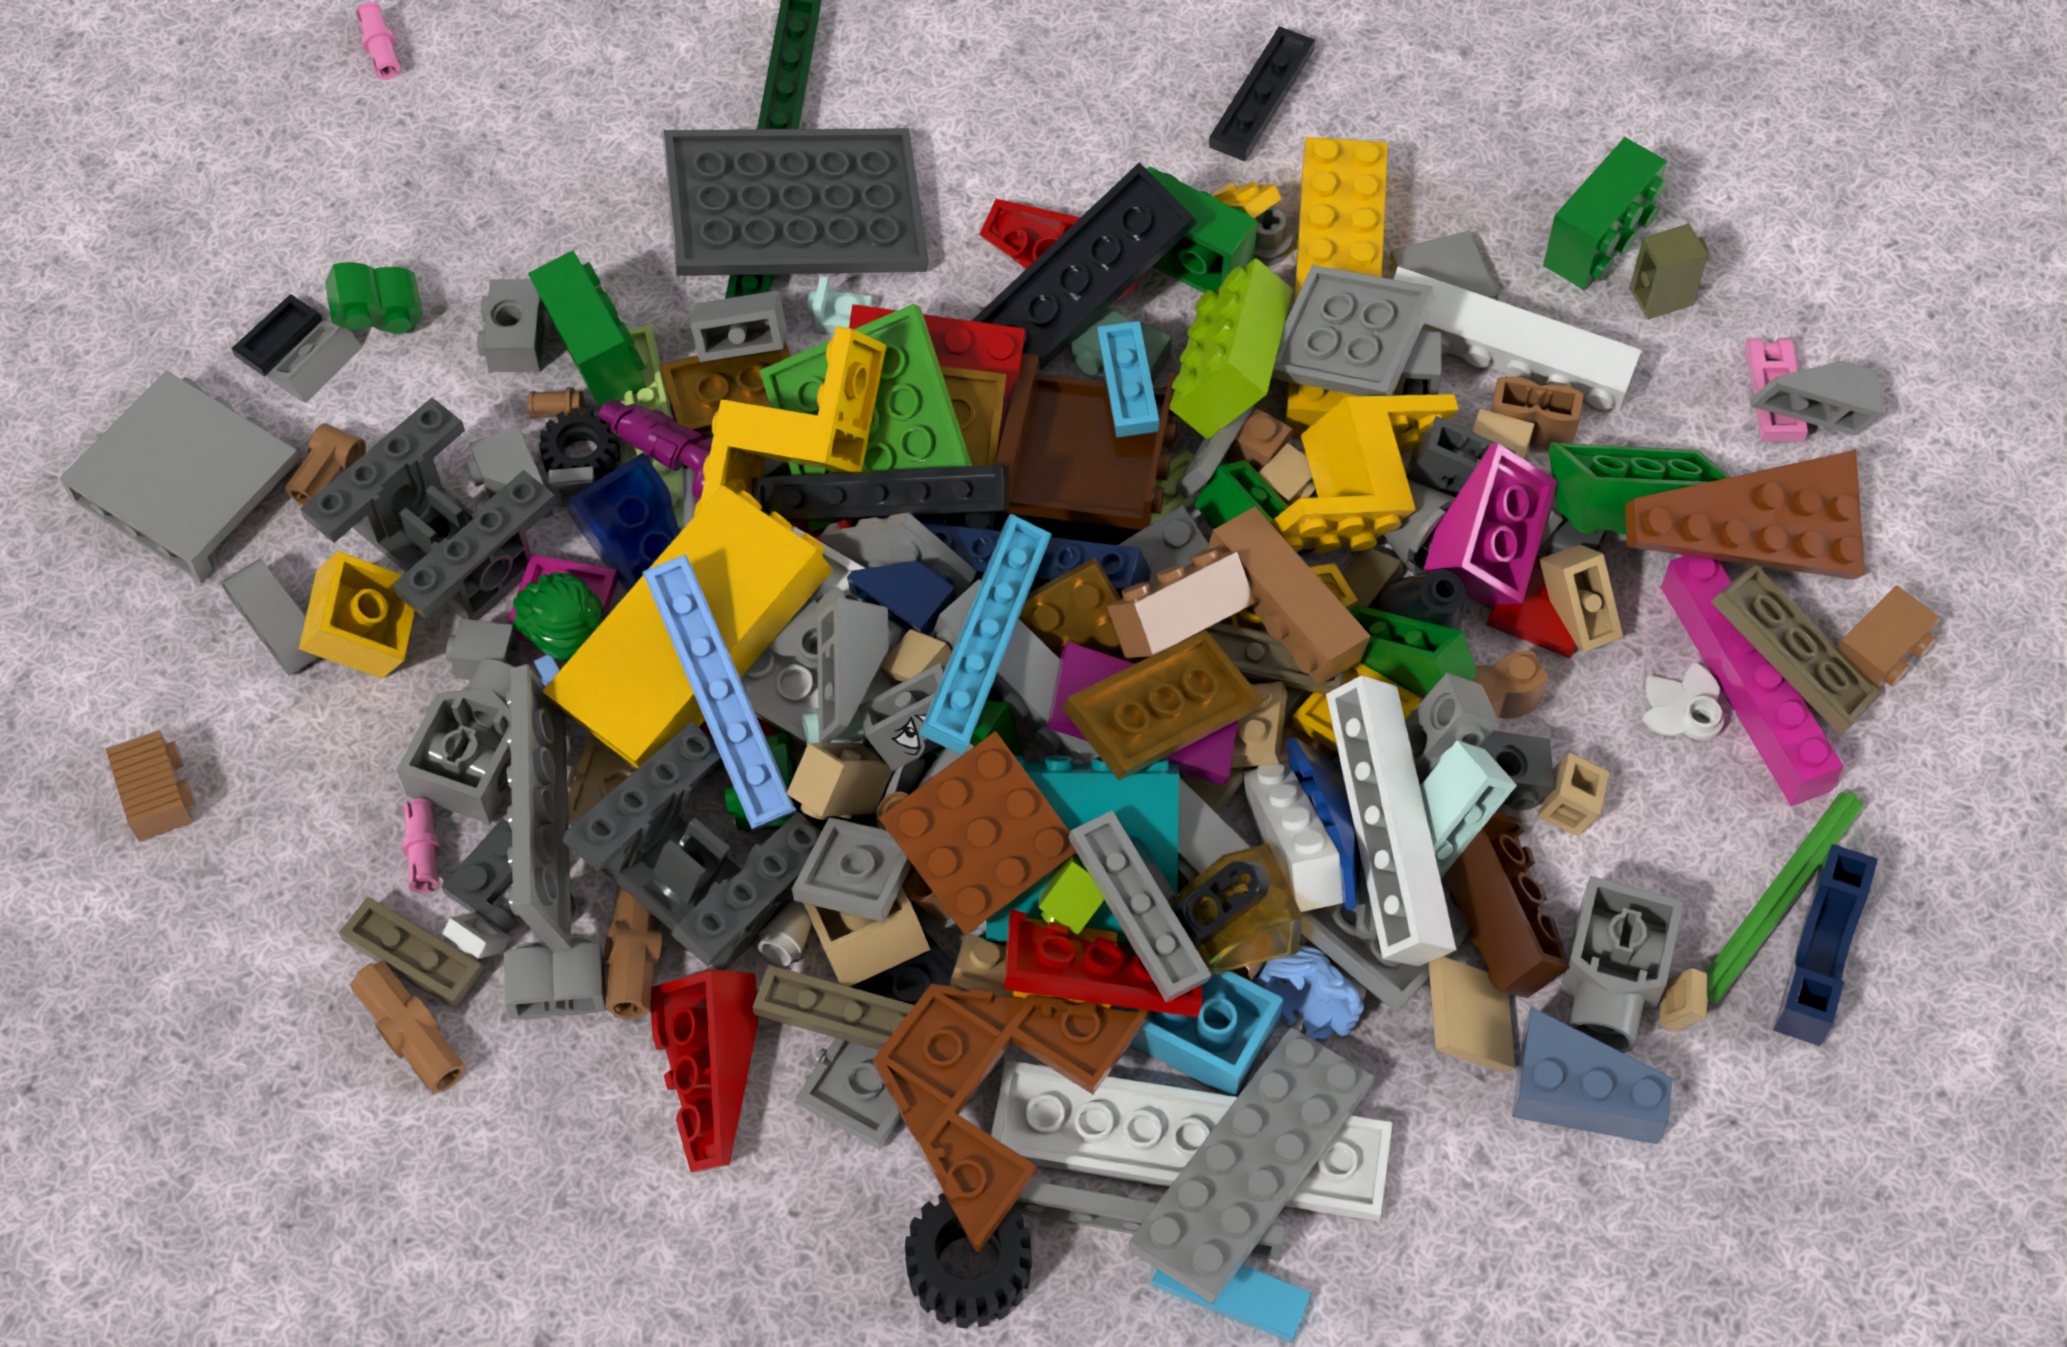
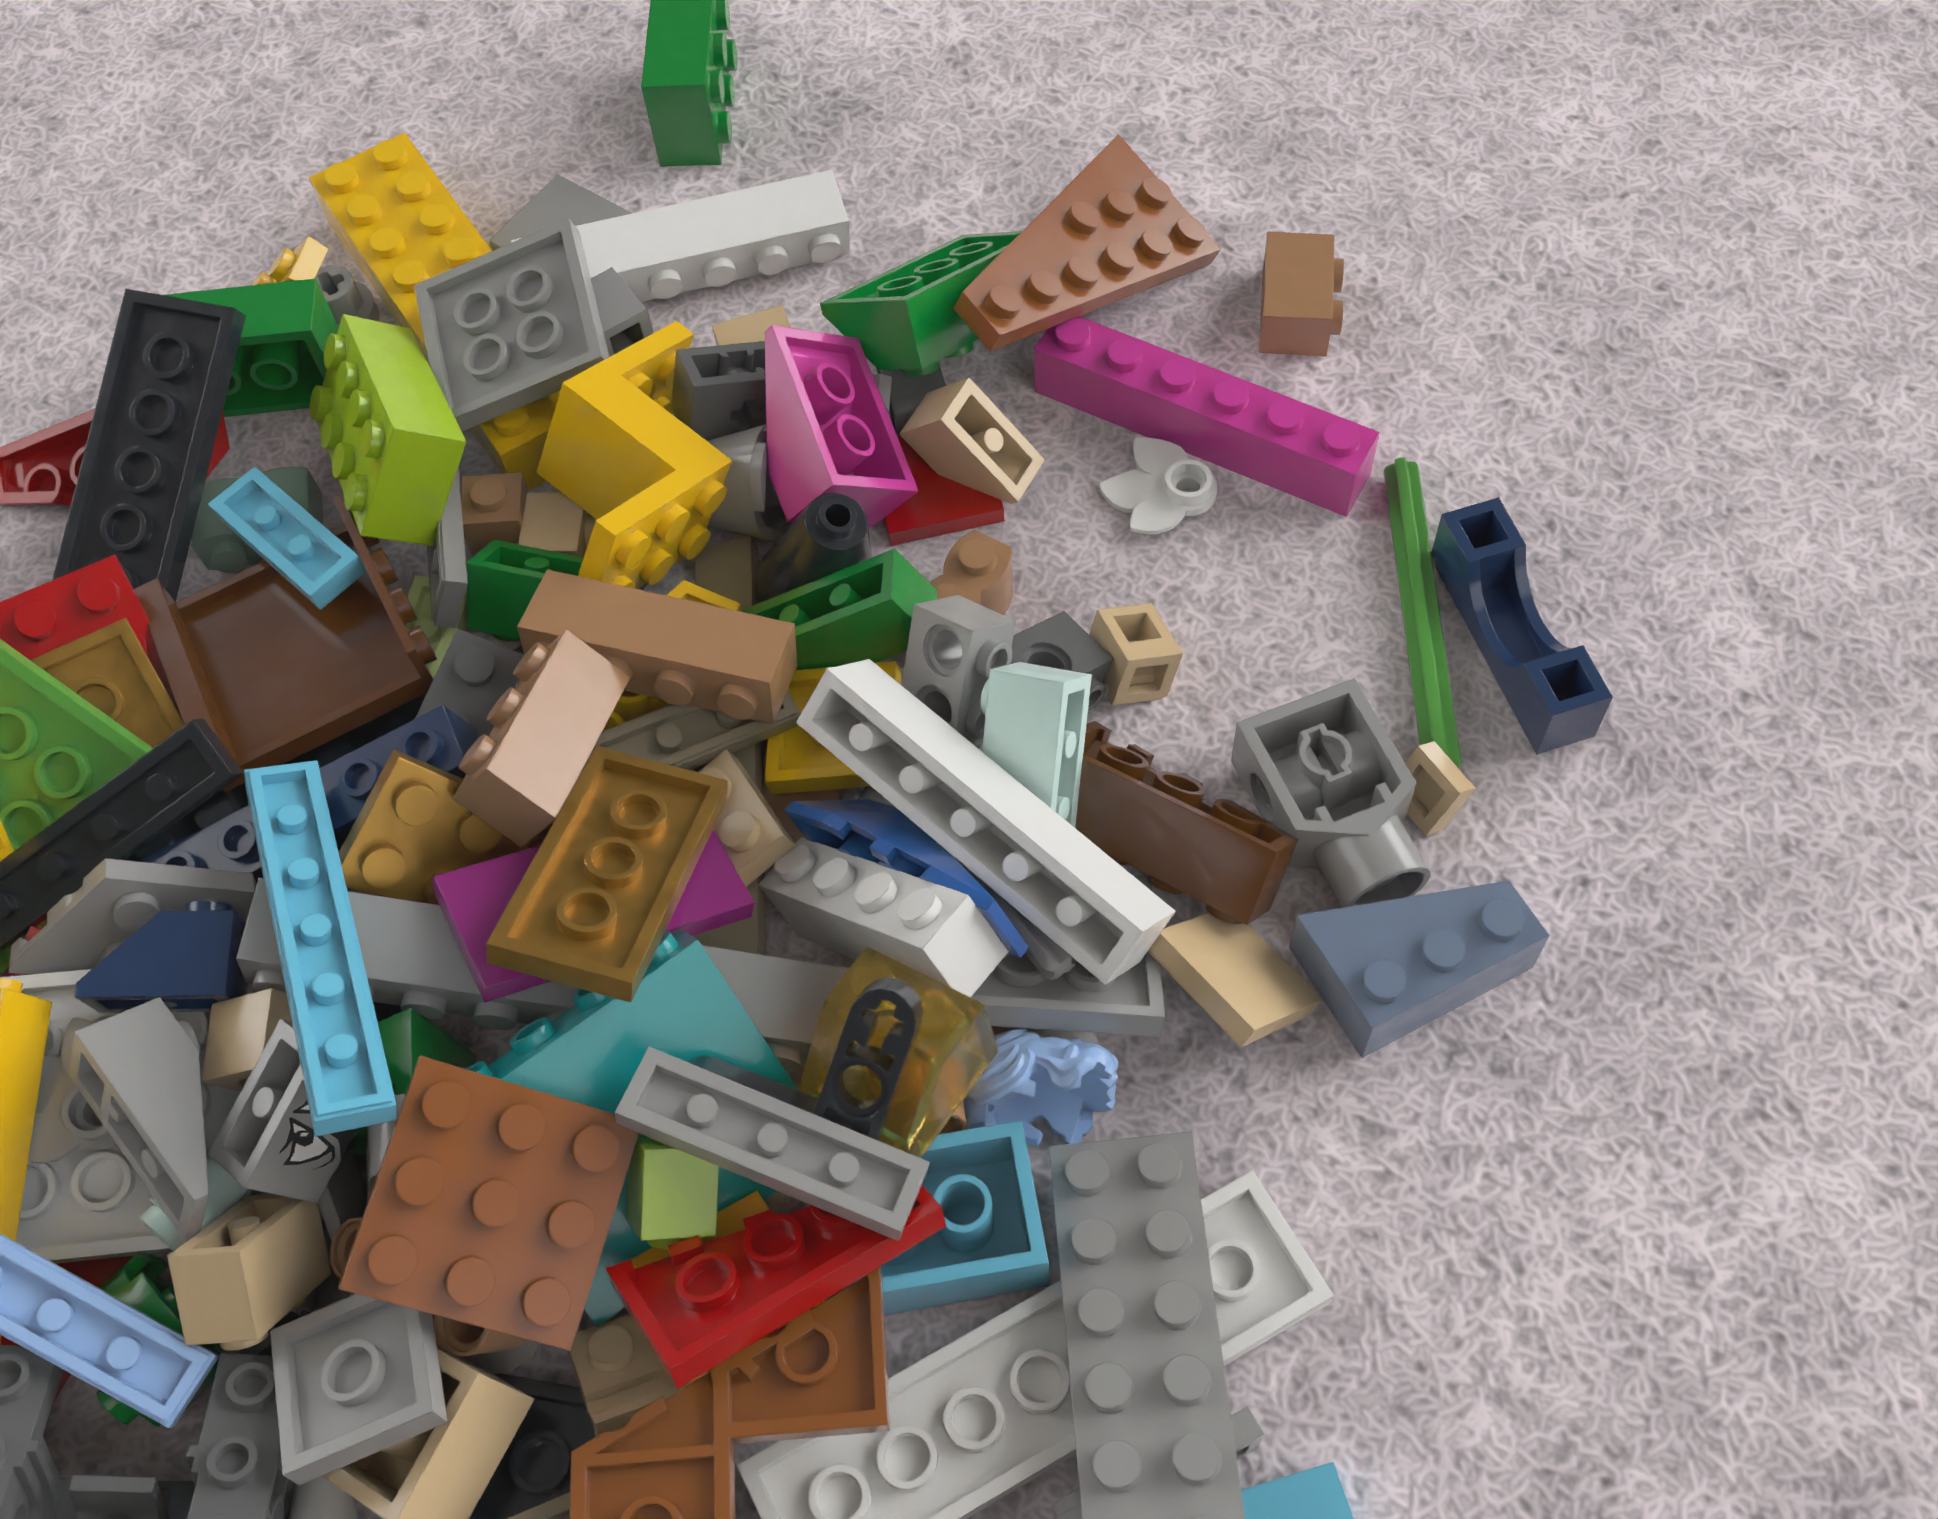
camera: 35 degrees left, 0 degrees up
(1261, 93) = (228, 176): black plate -> none
(1551, 408) = (785, 277): medium nougat brick -> none
(1668, 271) = (795, 84): olive brick -> none
(1772, 425) = (989, 136): bright pink plate -> none
(1796, 648) = (1230, 350): dark tan tile -> none
(1828, 395) = (1047, 105): light grey slope -> none

